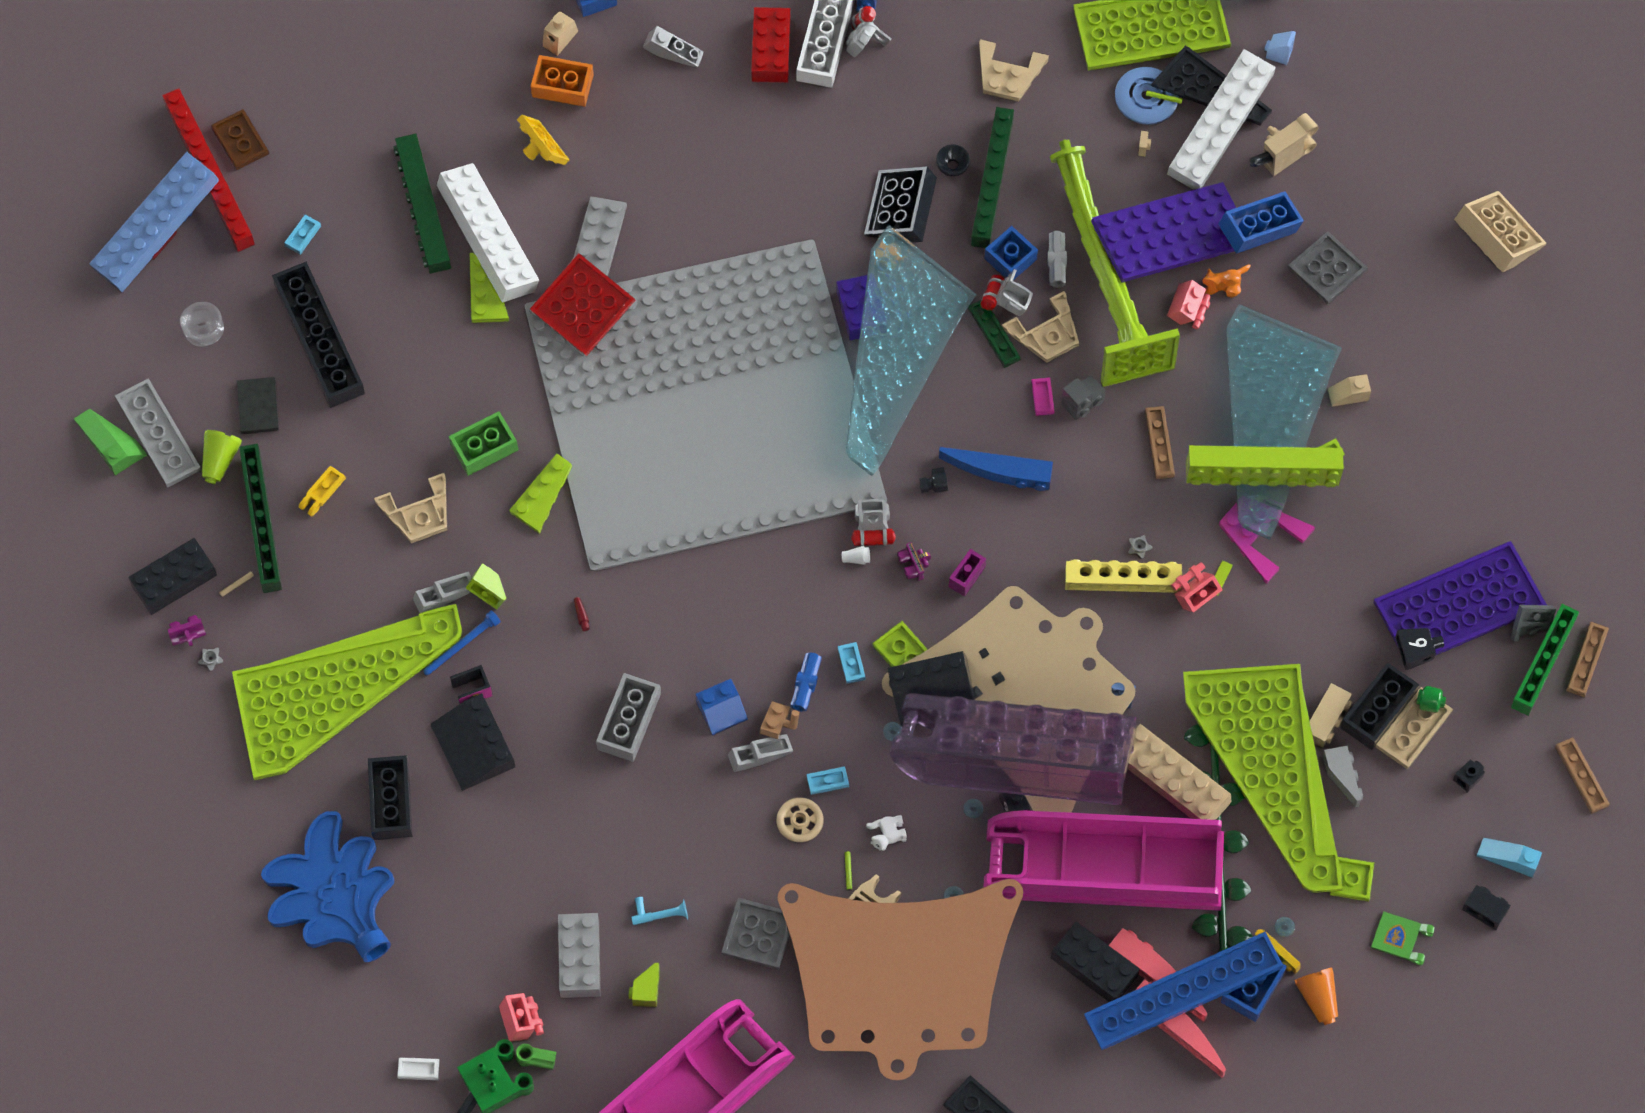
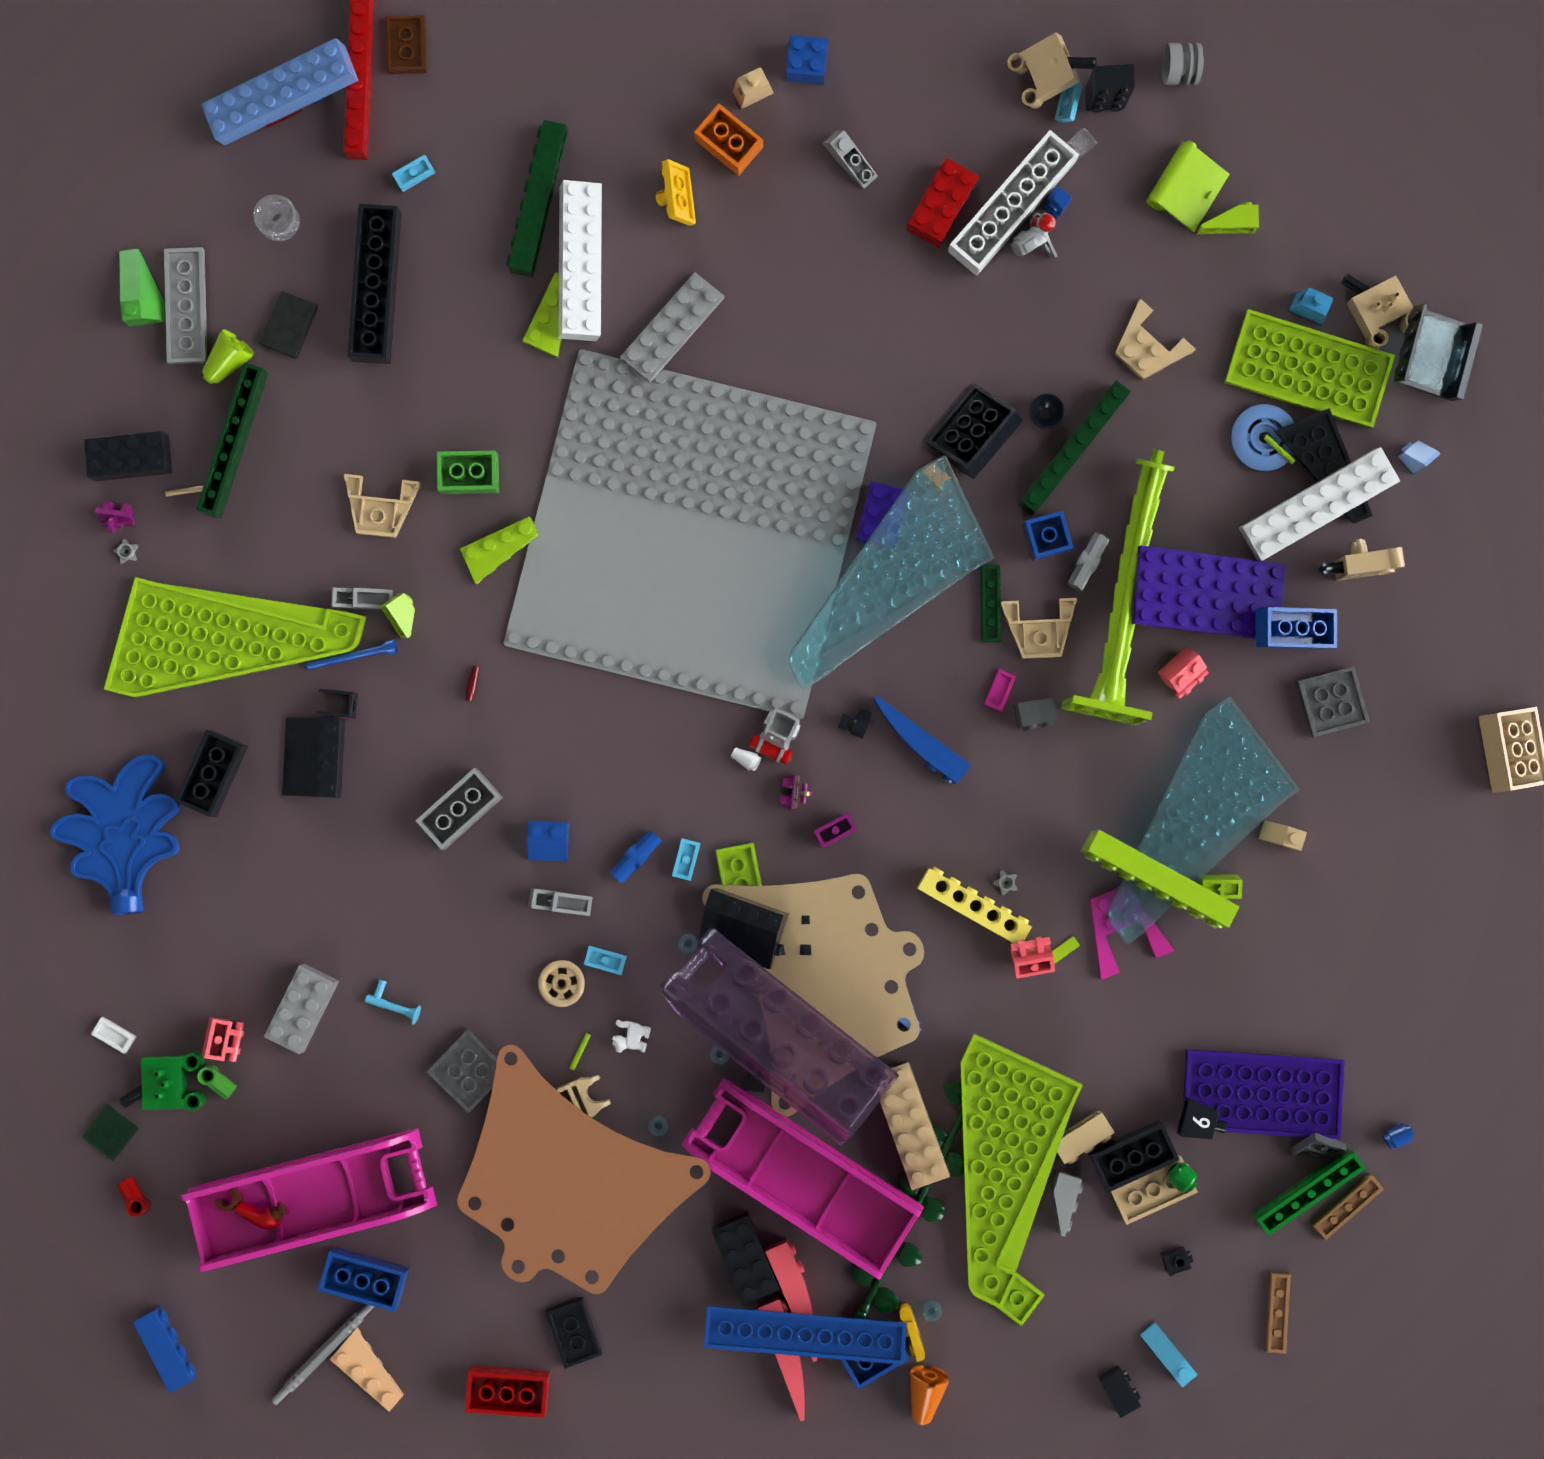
camera: 25 degrees right, 20 degrees up
(322, 490) = (304, 440): yellow hinge -> none
(582, 304) = (626, 382): red plate -> none
(646, 987) = (344, 1069): lime slope -> none
(776, 720) = (589, 880): medium nougat plate -> none
(1006, 294) = (1021, 575): light grey piece -> none
(1145, 143) = (1234, 487): tan plate -> none
(1159, 442) = (1081, 791): medium nougat tile -> none
(1225, 281) = (1232, 667): orange animal -> none
(1398, 937) = (1027, 1373): bright green flag -> none
(1594, 579) = (1398, 1136): none -> blue brick

